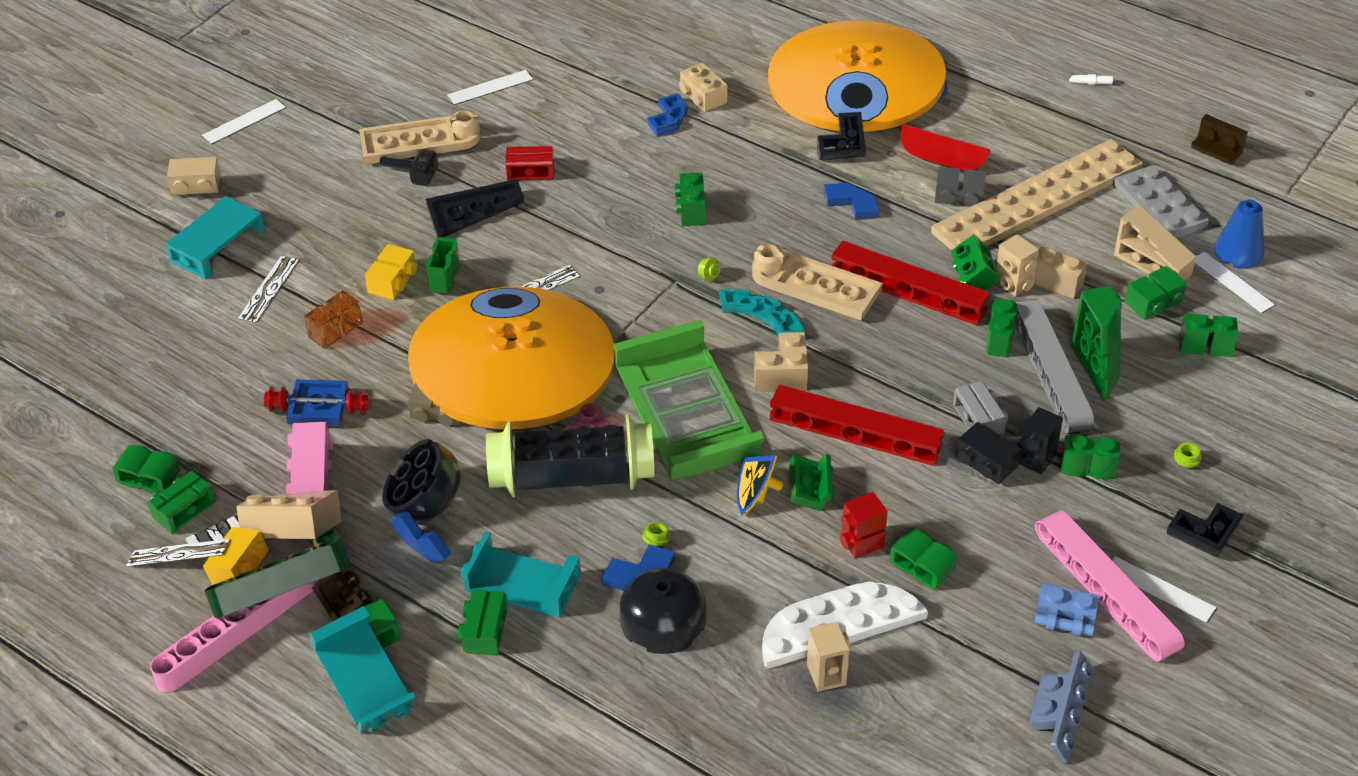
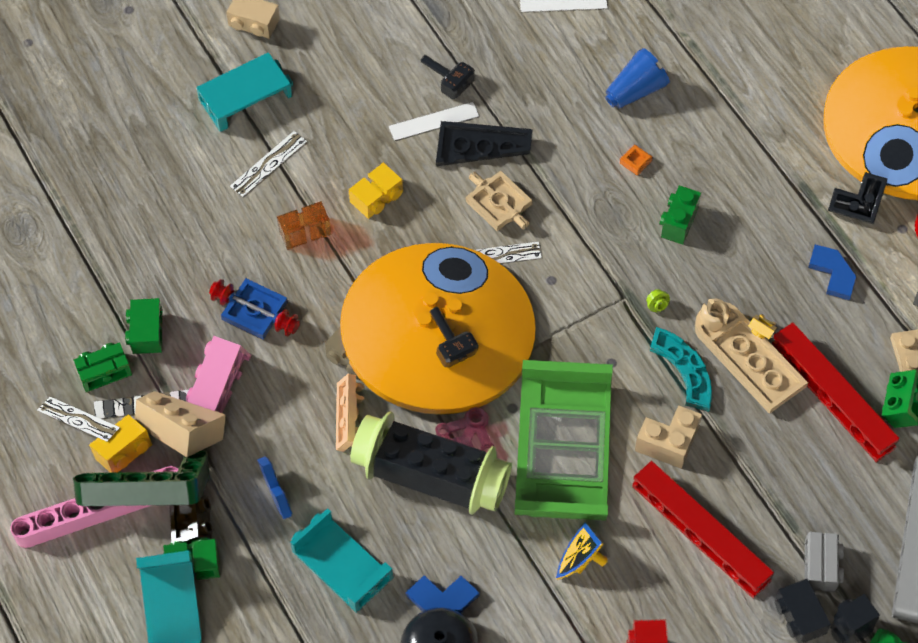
camera: 25 degrees right, 15 degrees up
(146, 469) = (89, 321): green brick -> none
(210, 450) = (145, 326): none -> green brick
(407, 138) = (469, 43): tan plate -> none
(413, 208) = (433, 121): none -> white sticker
(423, 482) = (298, 436): black cylinder -> none
(443, 265) = (421, 204): green brick -> none
(452, 437) = (347, 411): none -> light nougat plate
(484, 622) = (289, 594): green brick -> none
(514, 243) = (498, 200): none -> tan plate
(530, 163) = (554, 112): red brick -> none
(542, 354) = (455, 348): none -> black piece
(594, 113) = (637, 80): none -> blue cone
(625, 176) = (636, 160): none -> orange tile
(656, 534) = (474, 563): lime plate -> none
(673, 114) = (709, 109): blue tile -> none
(703, 87) = (758, 82): tan brick -> none
(811, 481) = (630, 571): green bracket -> none
(818, 253) = (762, 327): none -> yellow plate
(1001, 327) = (892, 479): green brick -> none

